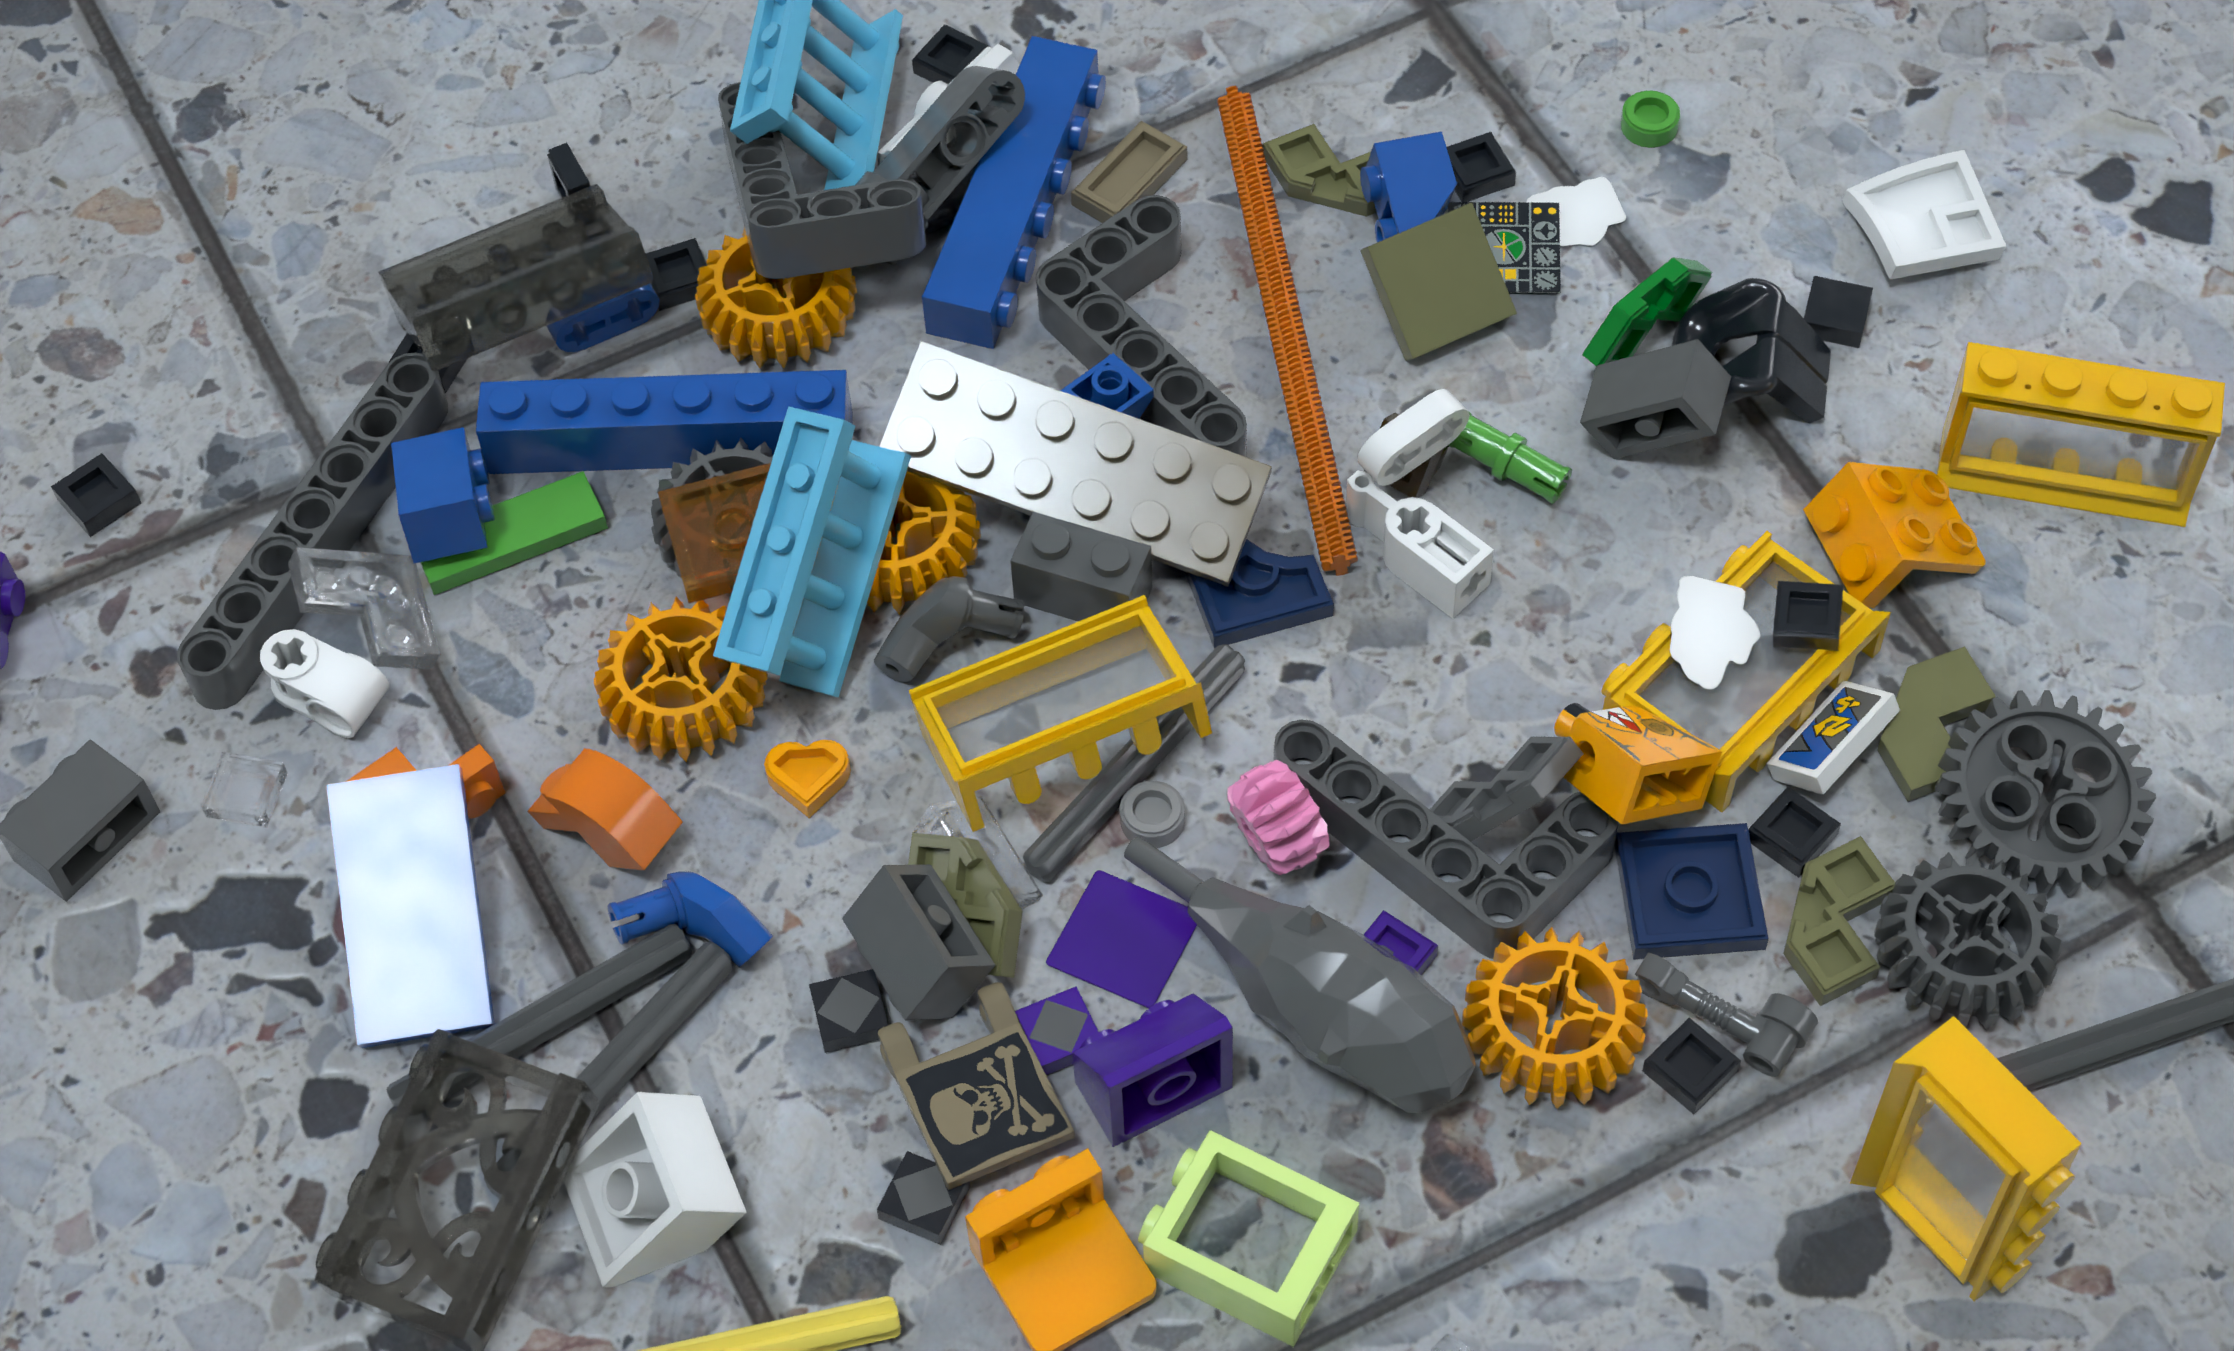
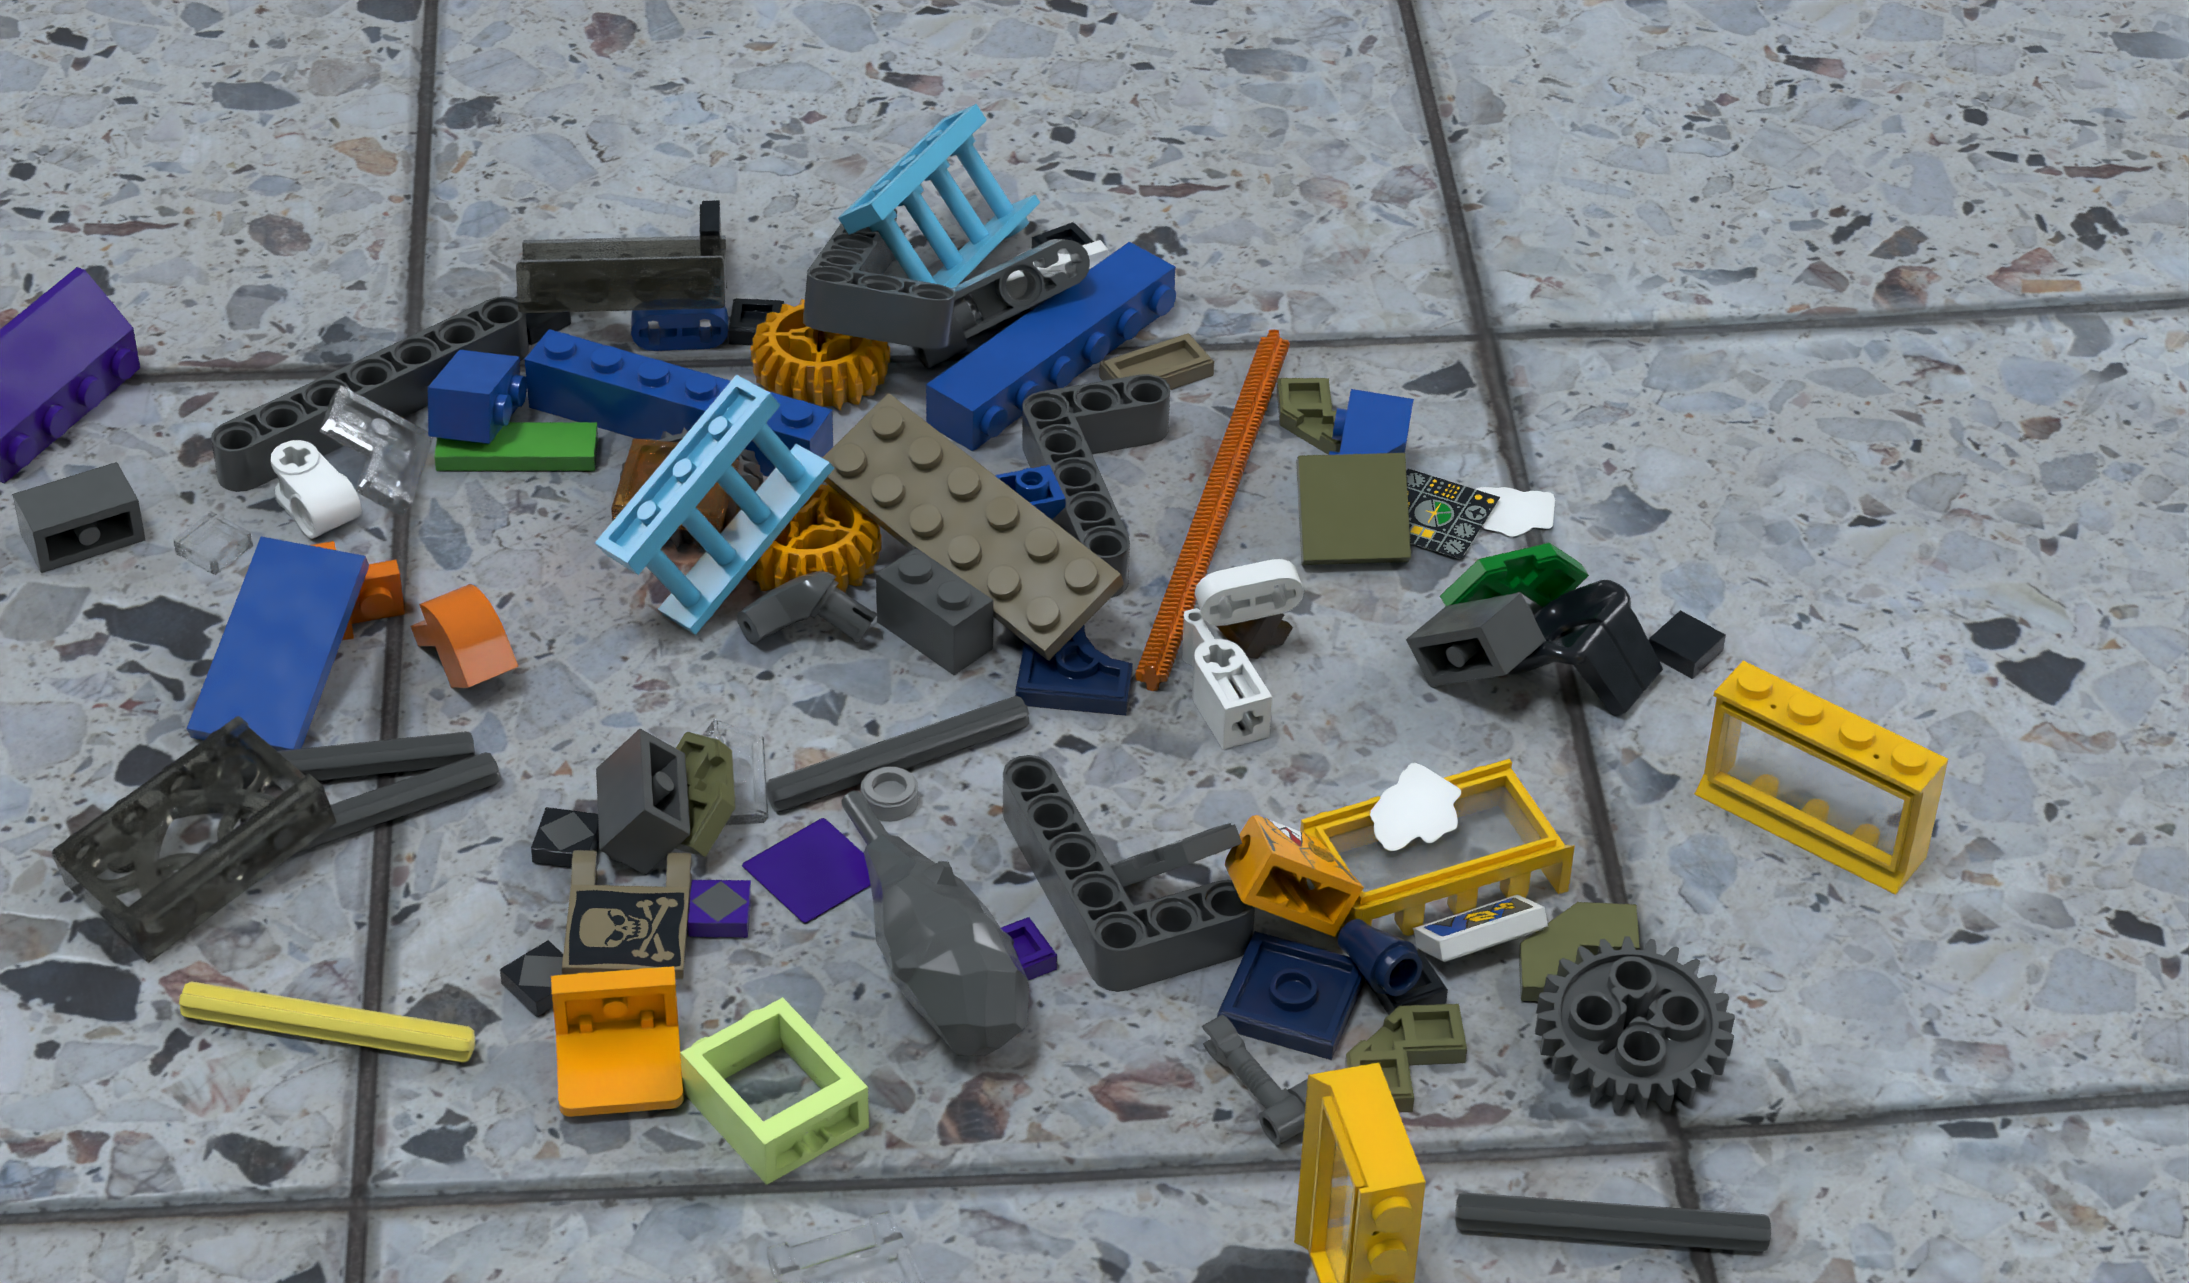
camera: 20 degrees right, 15 degrees down
(96, 494) = (229, 324): black tile -> none
(652, 1187) = (341, 891): white slope -> none
(674, 709) = (570, 585): light orange gear -> none
(698, 909) = (493, 726): blue arm -> none
(807, 774) = (640, 676): light orange tile -> none
(1055, 701) = (848, 674): yellow window -> none
(1155, 1066) = (771, 953): dark purple slope -> none
(1278, 817) = (979, 817): bright pink gear -> none
(1480, 167) = (1447, 451): black tile -> none
(1506, 995) = (1117, 1051): light orange gear -> none
(1512, 459) = (1337, 650): bright green pin -> none
(1650, 119) = (1616, 464): bright green tile -> none
(1691, 1065) = (1213, 1112): black tile -> none
(1770, 820) = (1383, 959): none -> dark blue cone
(1808, 615) = (1501, 824): black tile -> none
(1887, 523) = (1629, 789): light orange bracket -> none
(1927, 216) = (1807, 600): white plate -> none
(1981, 972) = (1501, 1090): dark grey gear -> none

